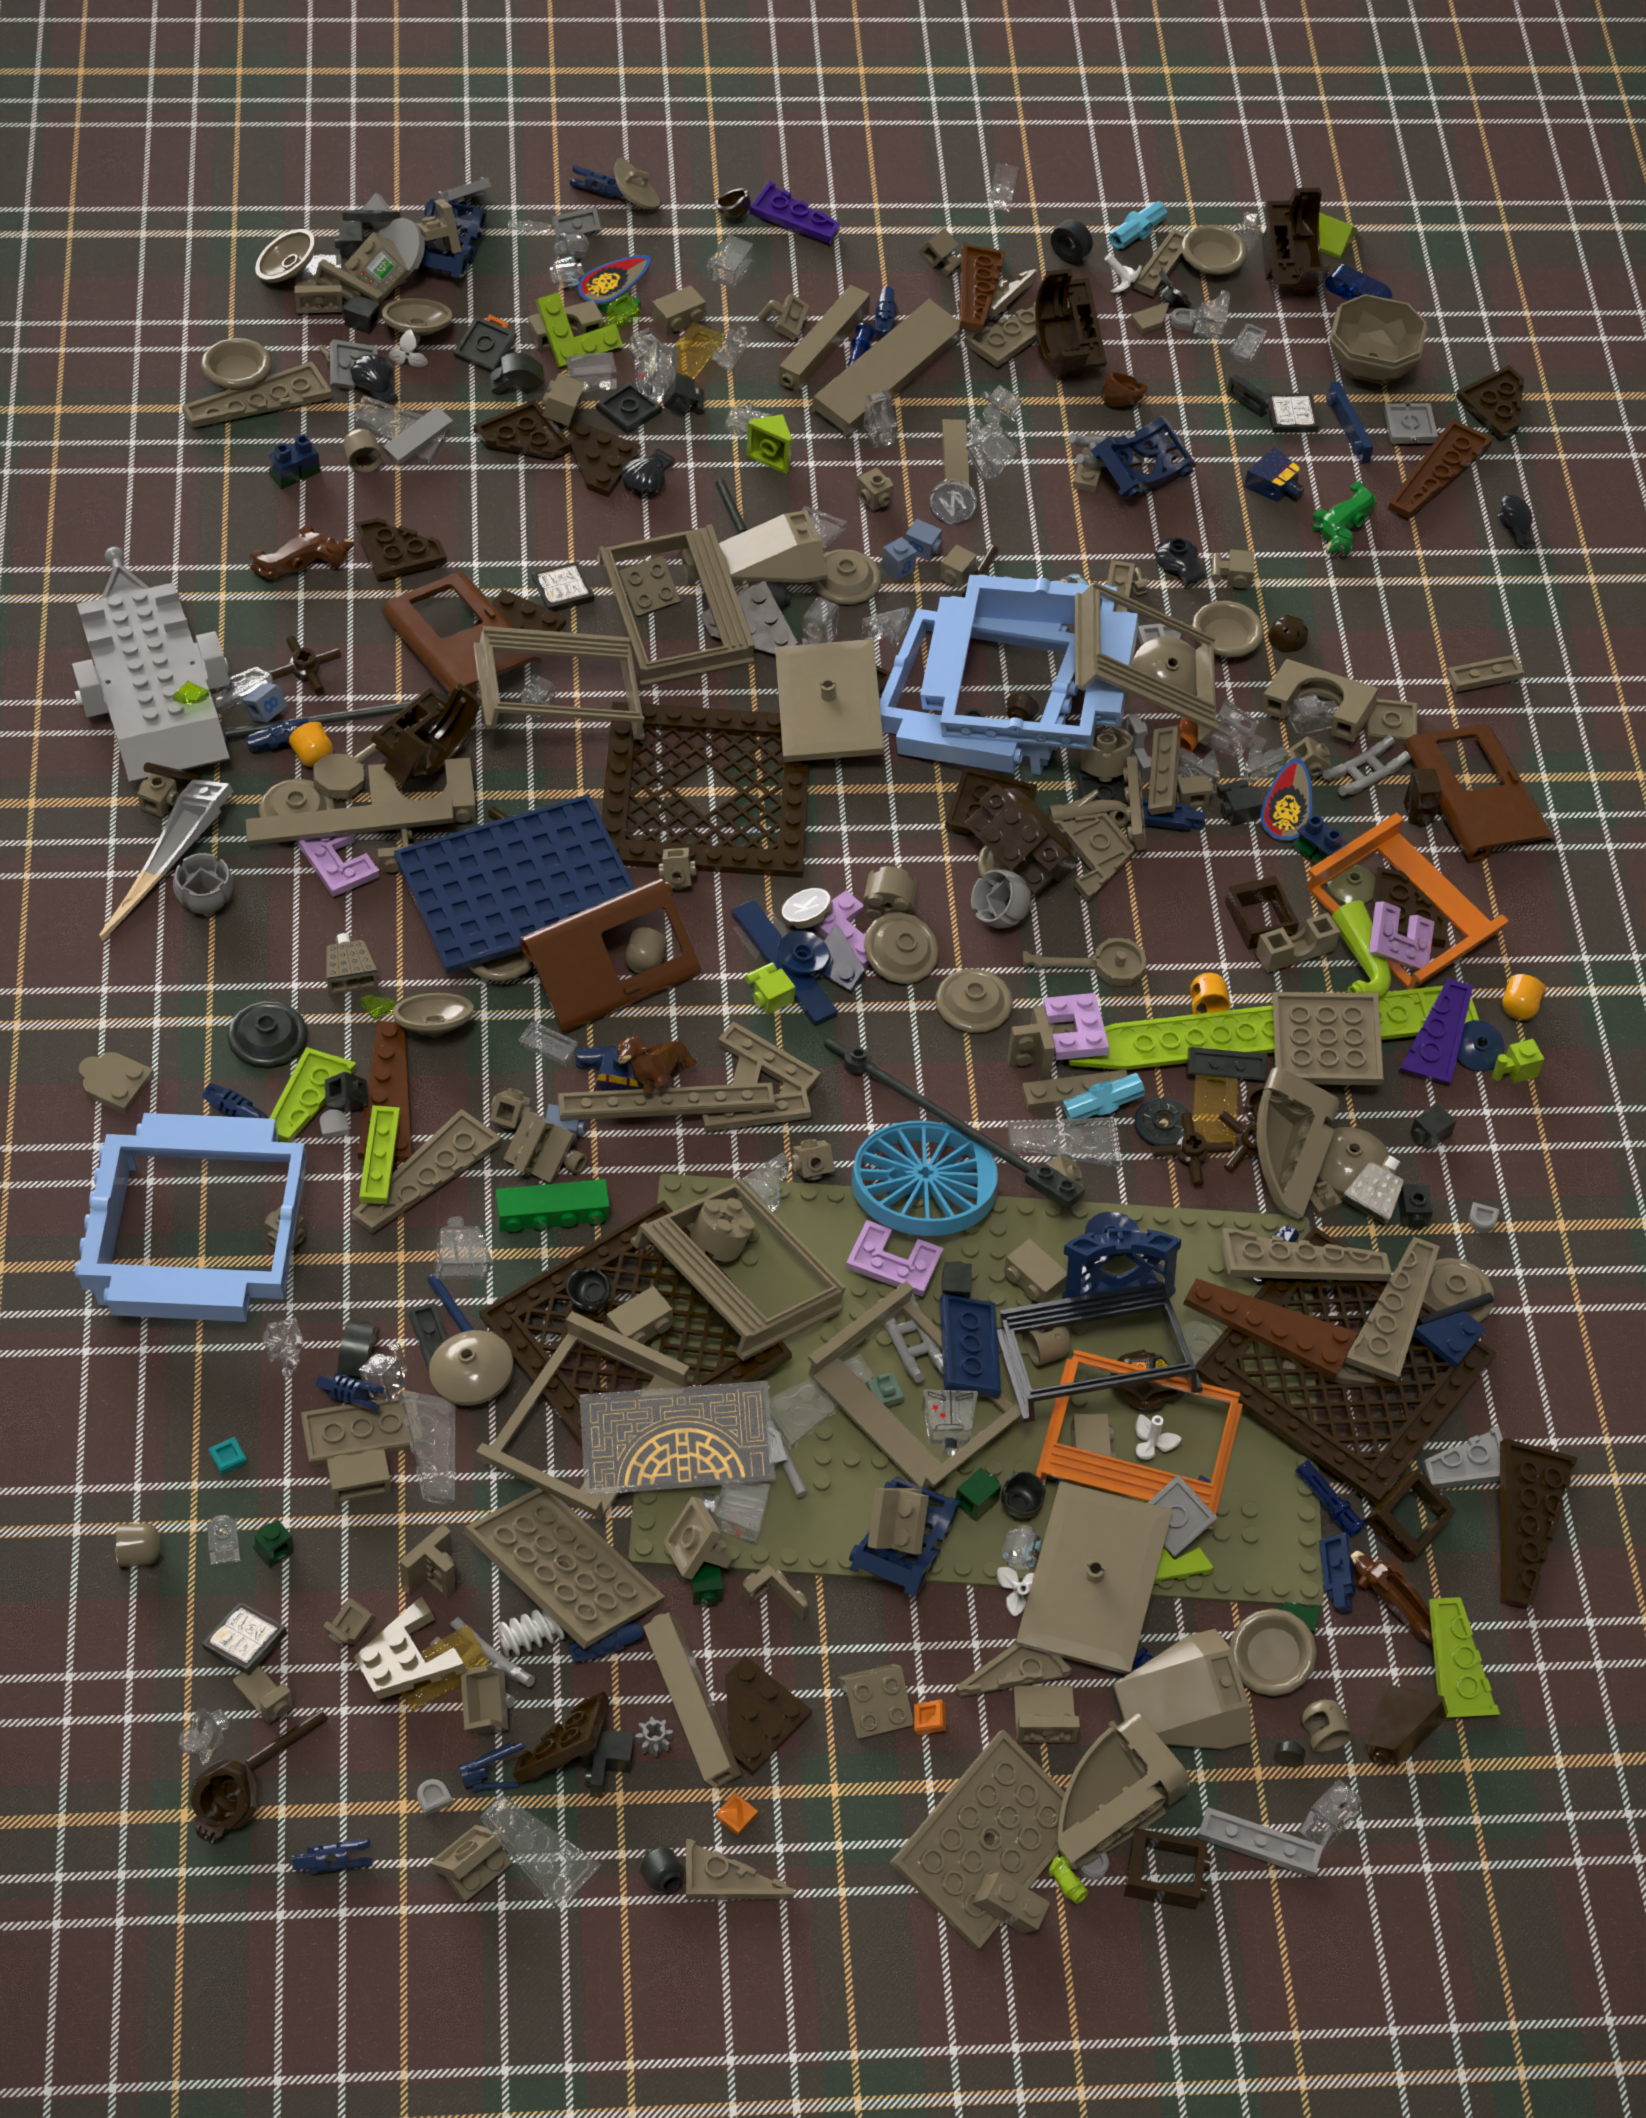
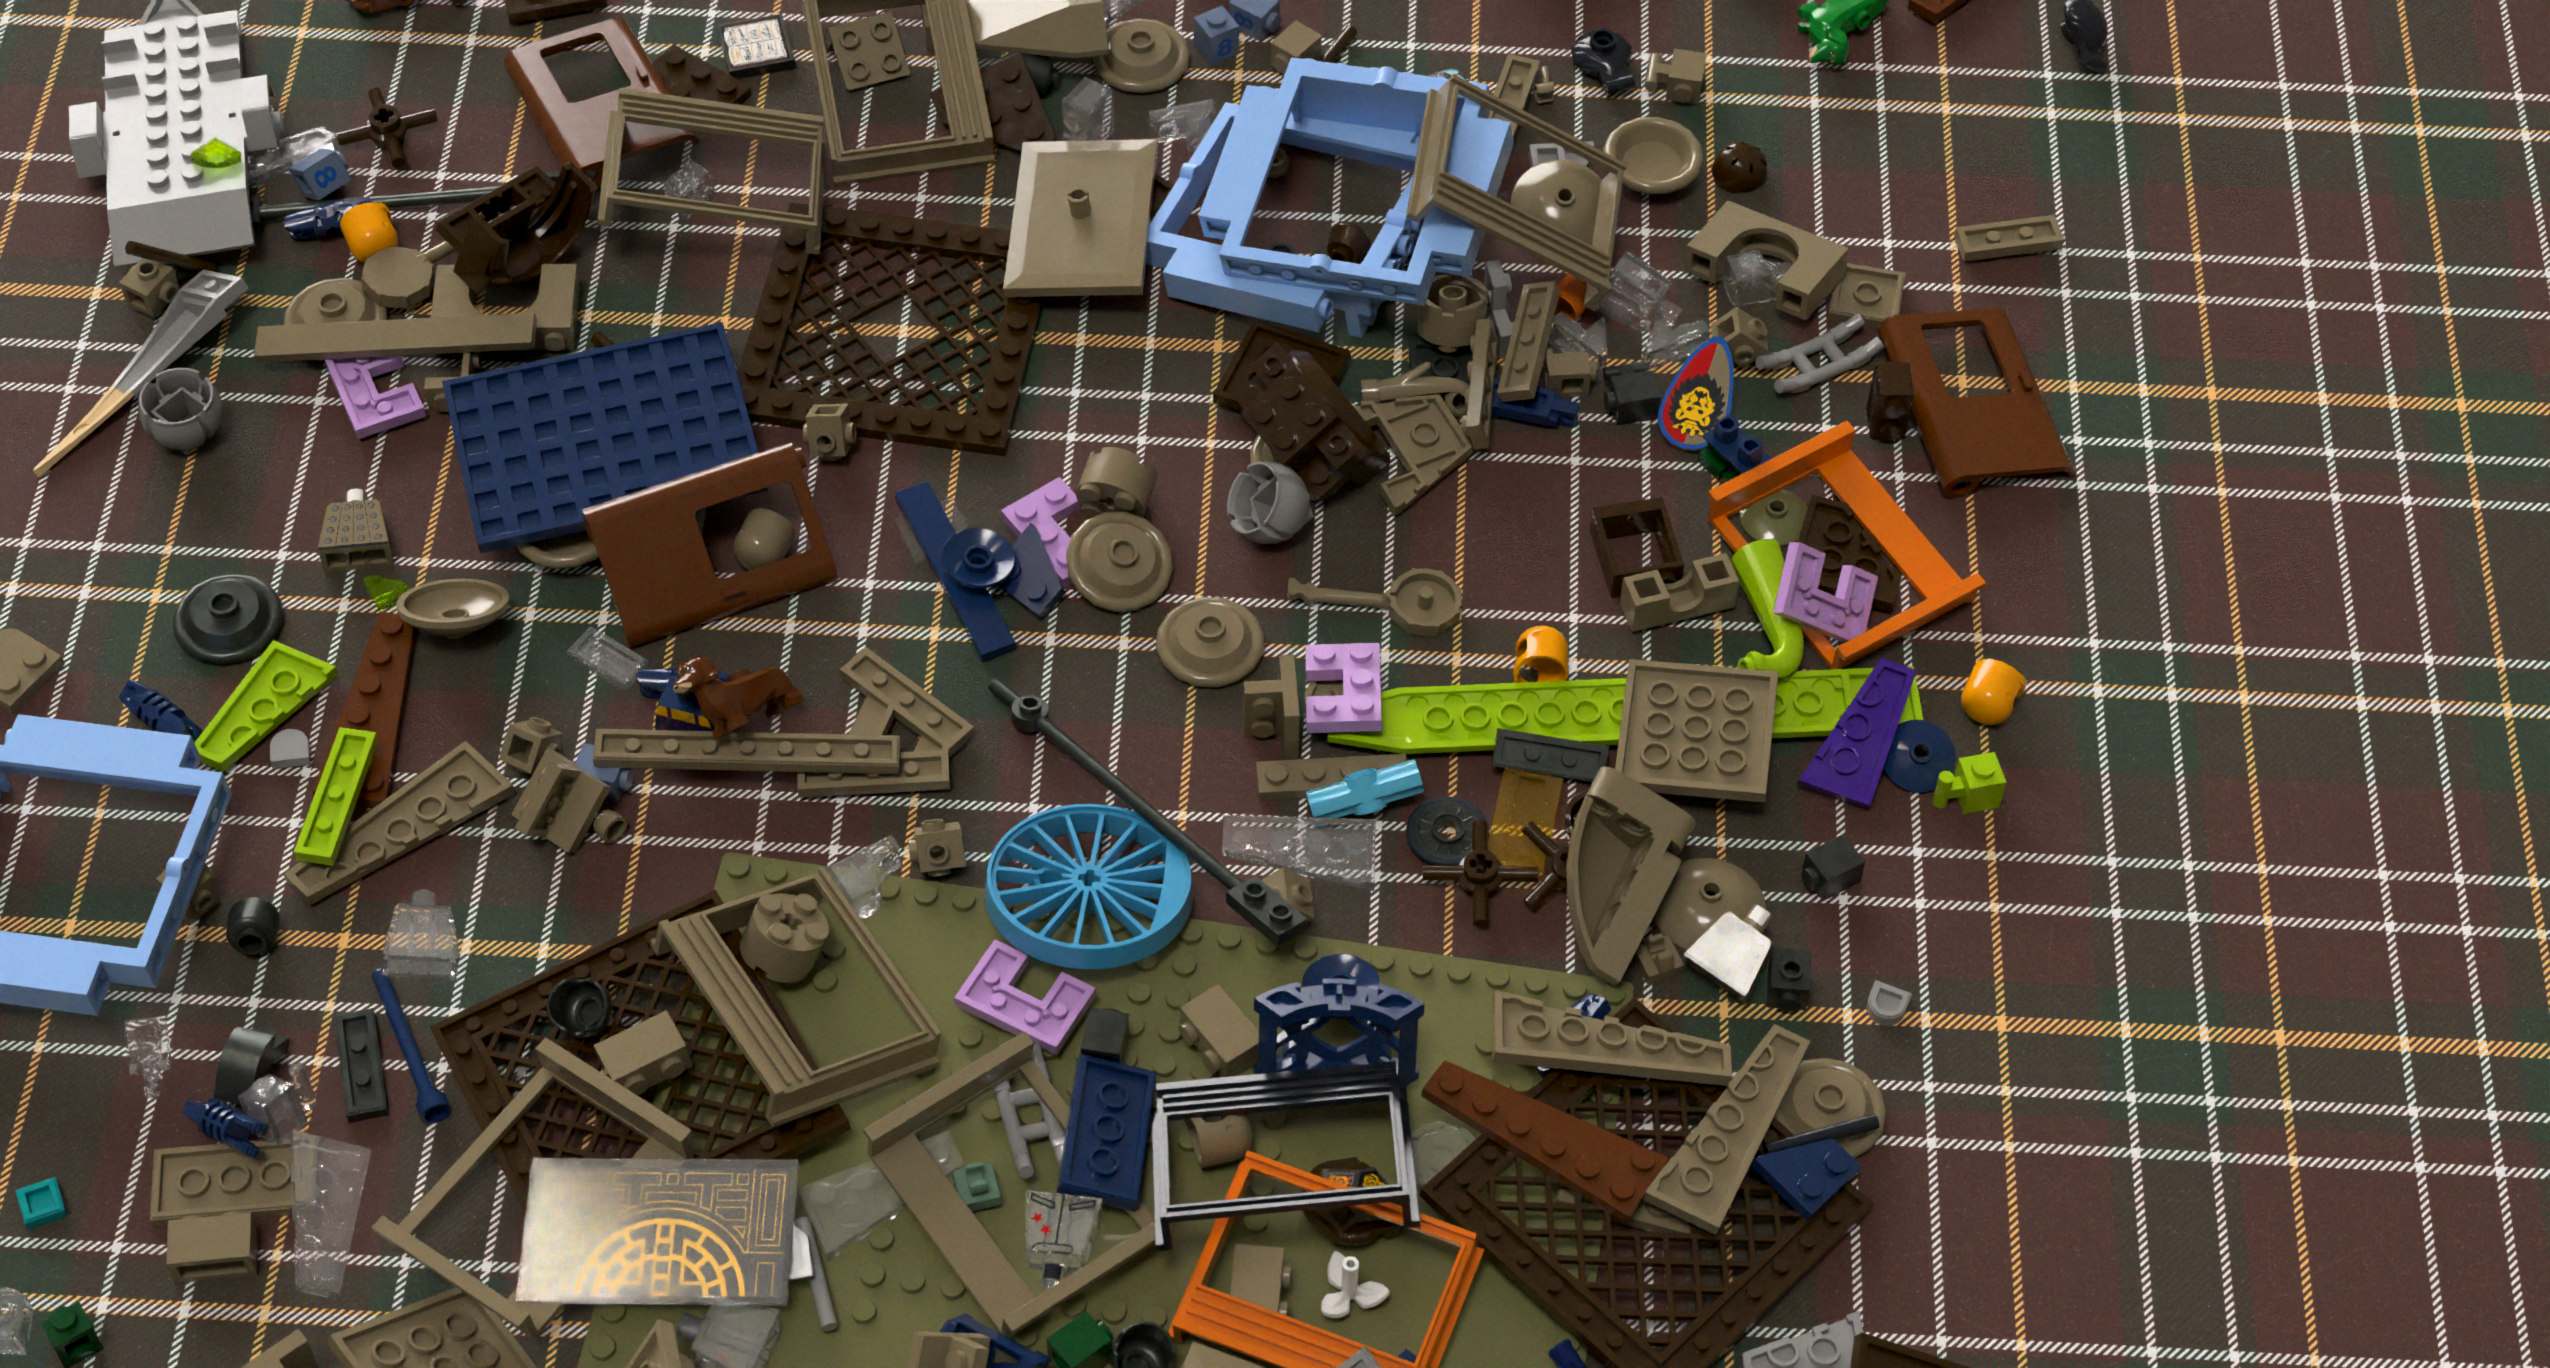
camera: 10 degrees right, 0 degrees up
(337, 1251) = (252, 926): none -> pearl dark grey head
(346, 1092) = (311, 706): pearl dark grey brick -> none
(475, 1378) = (408, 1117): dark tan dish -> none
(552, 1205) = (563, 884): green brick -> none
(771, 988) = (928, 605): lime brick -> none
(807, 908) = (998, 497): tile -> none

